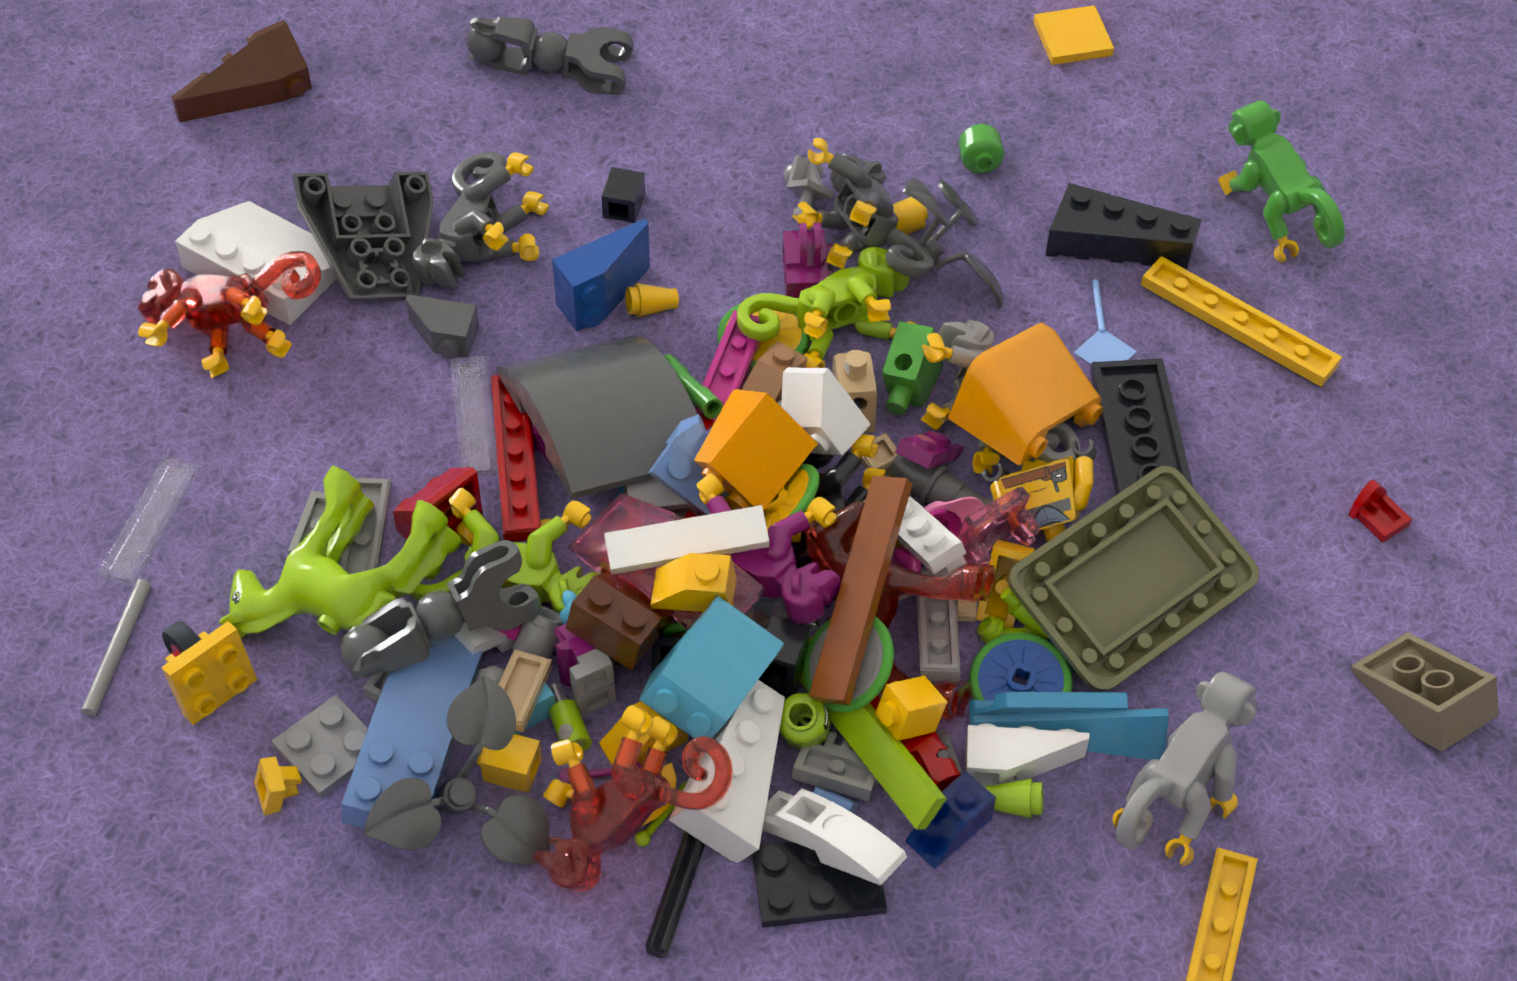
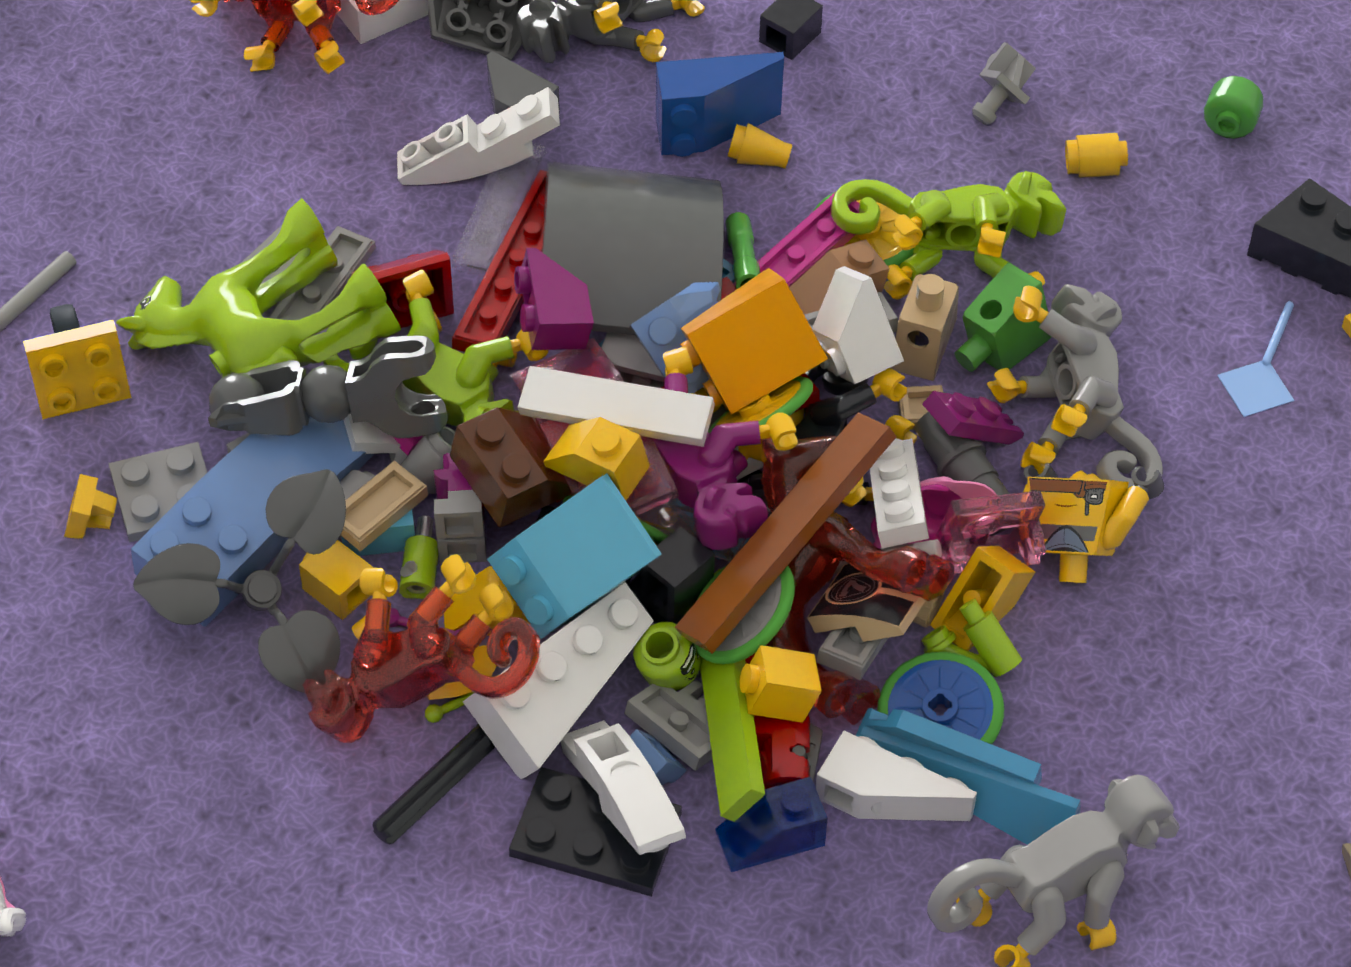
camera: 25 degrees right, 0 degrees up
(149, 522) = (108, 196): clear tile -> none
(432, 378) = (472, 150): none -> white slope
(586, 477) = (554, 304): none -> magenta slope
(804, 258) = (955, 158): magenta brick -> none
(867, 211) = (1044, 130): dark grey animal -> none
(918, 191) = (1102, 201): dark grey plant -> none
(929, 621) = (867, 604): none -> slope
(1019, 797) = (863, 832): lime cone -> none
(1022, 392) = (1108, 386): light orange windscreen -> none
(1133, 578) = (1128, 645): olive wedge -> none
(1138, 419) = (1233, 515): black plate -> none

